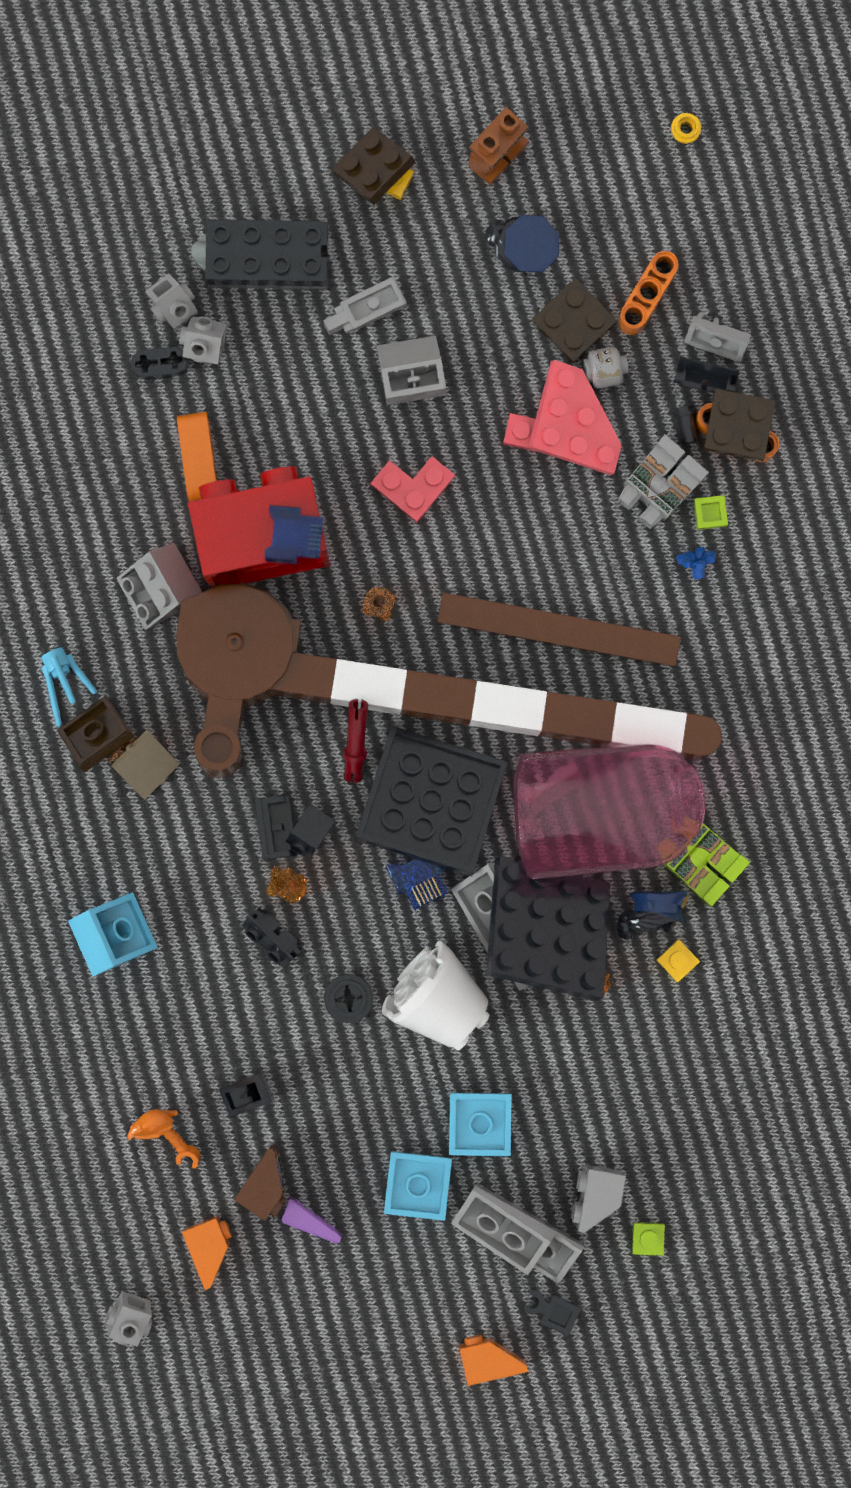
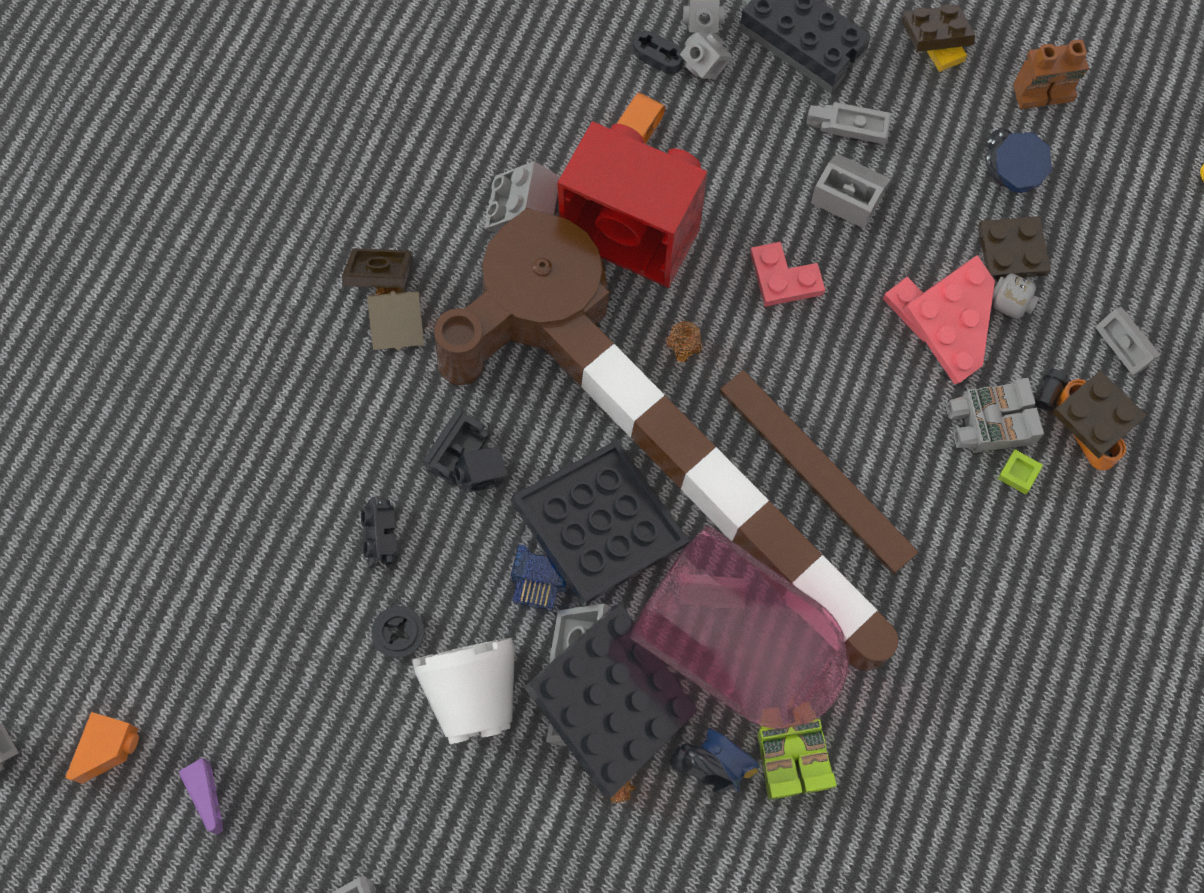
camera: 40 degrees right, 15 degrees down
(58, 665) = (391, 203): medium azure plant -> none
(112, 934) = (256, 430): medium azure slope -> none
(157, 1123) = (156, 607): orange piece -> none
(246, 1094) = (250, 643): black slope -> none
(265, 1186) = (192, 727): reddish brown slope -> none
(286, 885) = (426, 498): clear orange brick -> none
(293, 535) = (654, 199): clear blue piece -> none
(354, 751) = (569, 433): dark red pin -> none
(417, 1185) = (320, 840): medium azure plate -> none
(480, 1124) = (417, 830): medium azure plate -> none
(653, 279) = (1101, 257): orange beam -> none
(677, 960) = (705, 826): yellow plate -> none
(697, 561) = (978, 502): blue plant -> none
(705, 375) = (1091, 358): black hinge -> none

